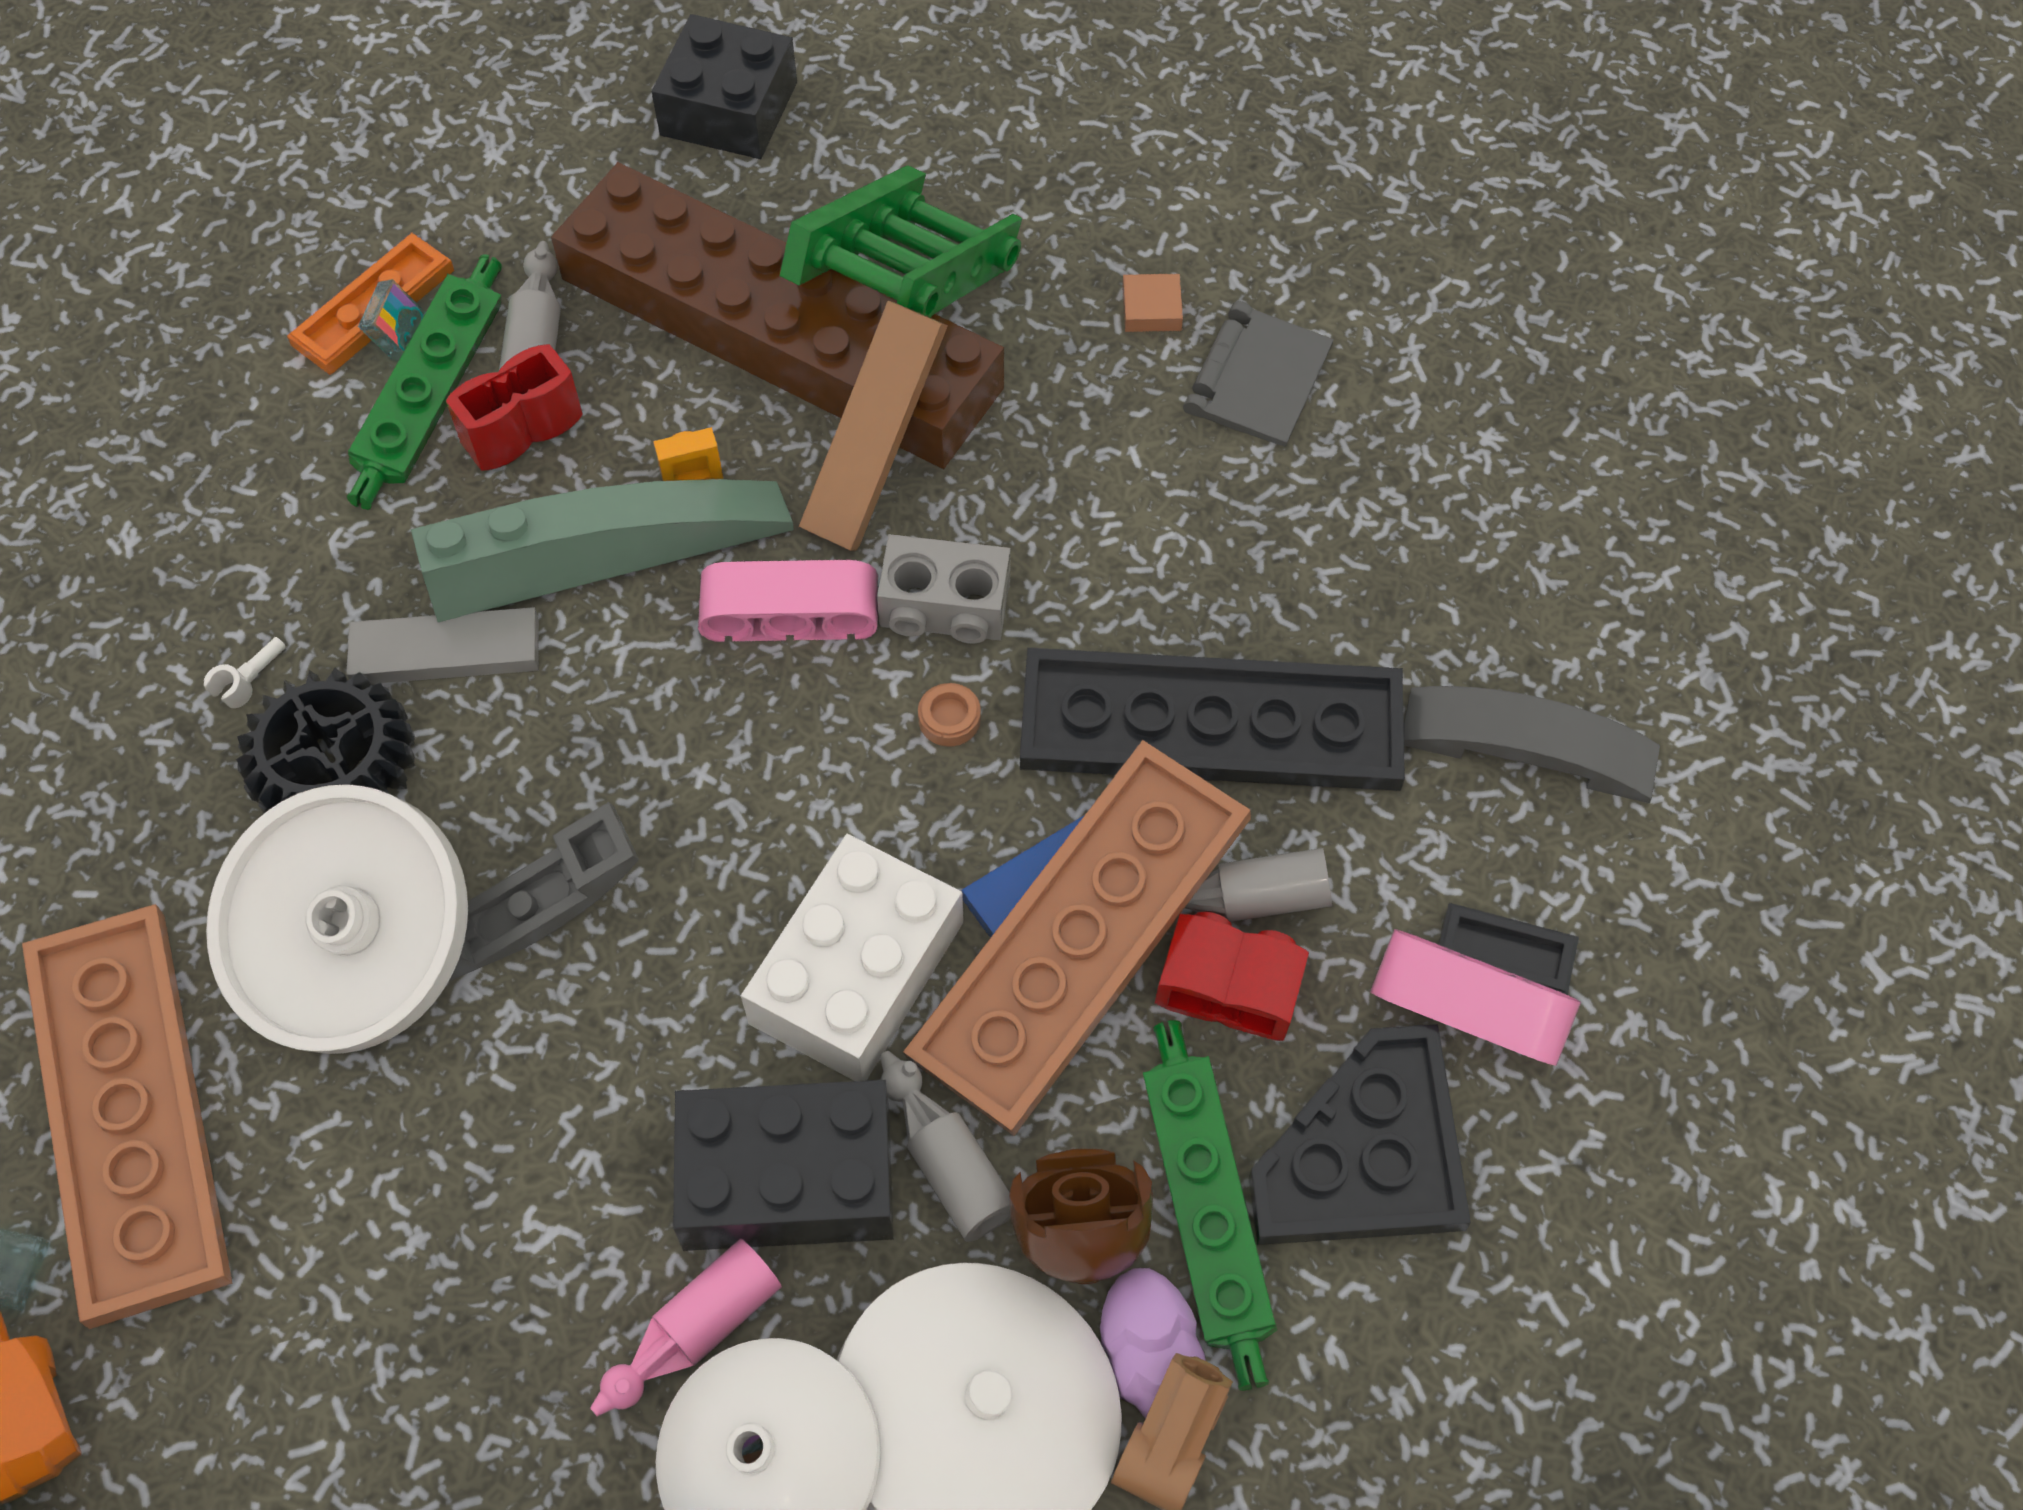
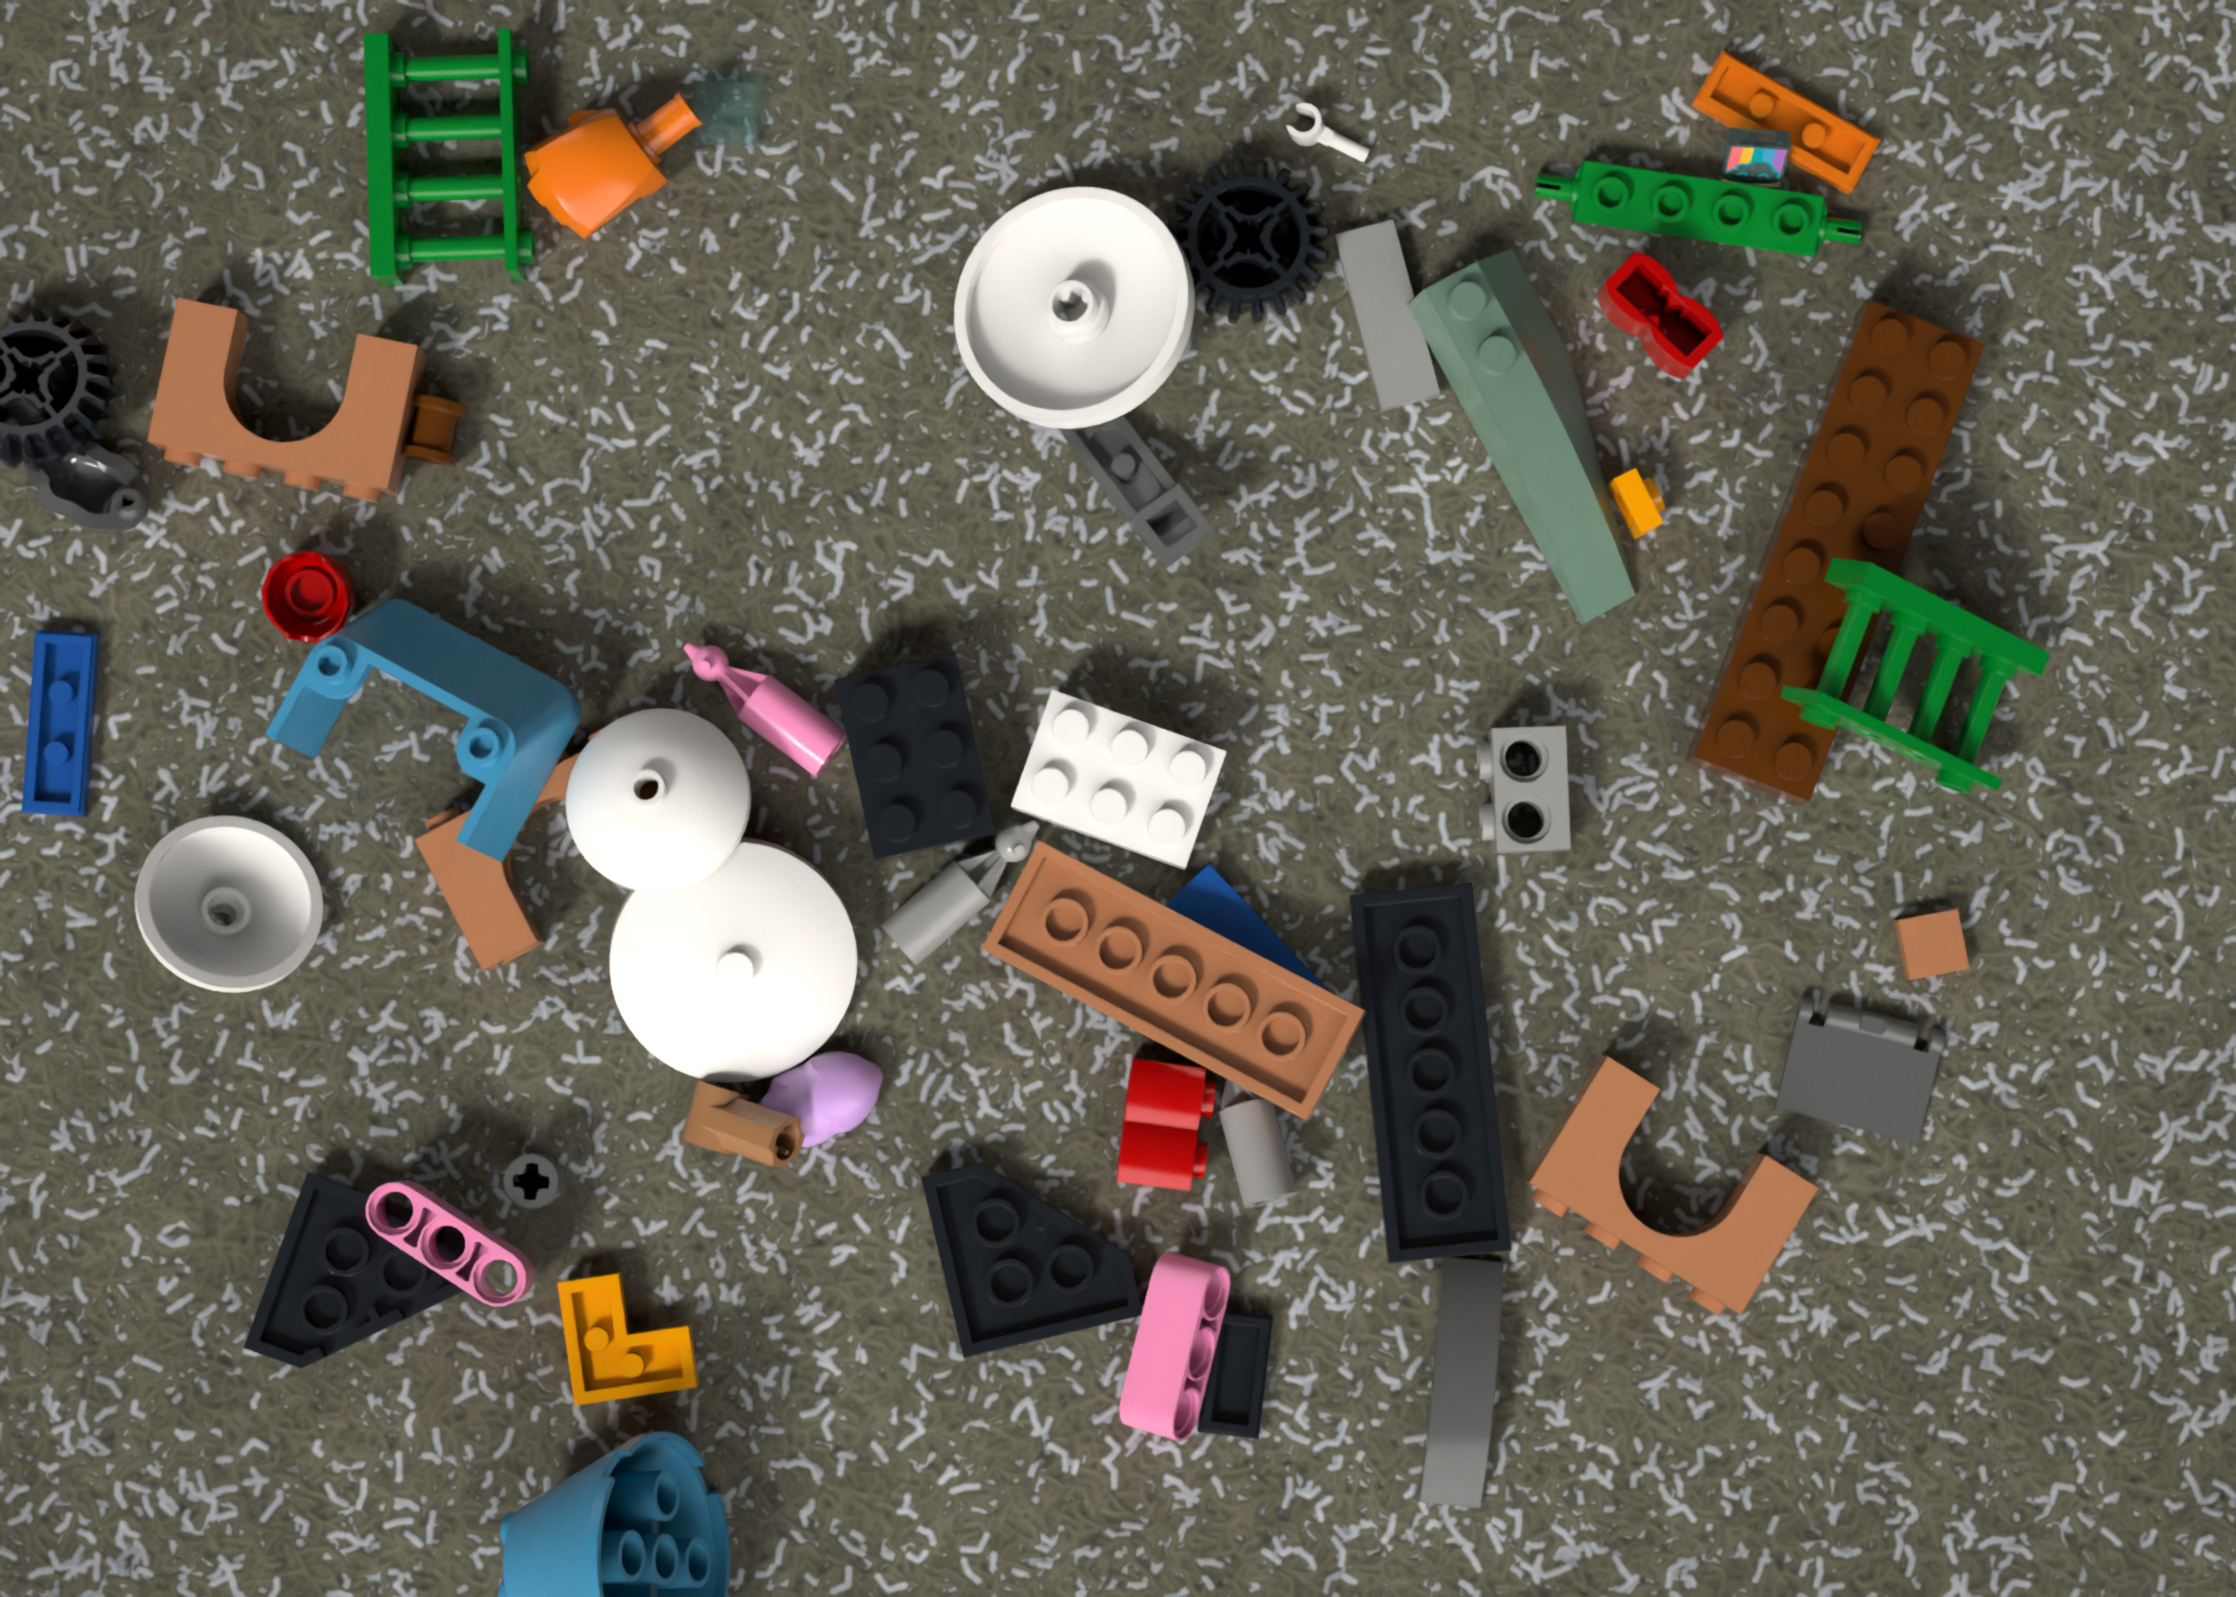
camera: 80 degrees right, 25 degrees up
(124, 1117) = (877, 172): nougat plate -> none
(533, 309) = (1784, 299): light grey wheel -> none
(725, 86) = (2137, 428): black brick -> none
(788, 599) = (1490, 639): bright pink beam -> none
(873, 425) = (1682, 687): medium nougat tile -> none
(949, 714) = (1396, 818): nougat tile -> none
(1082, 1215) = (910, 1022): reddish brown cylinder -> none
(1210, 1205) = (954, 1129): green plate -> none
(1333, 597) = (1719, 1259): none -> nougat arch

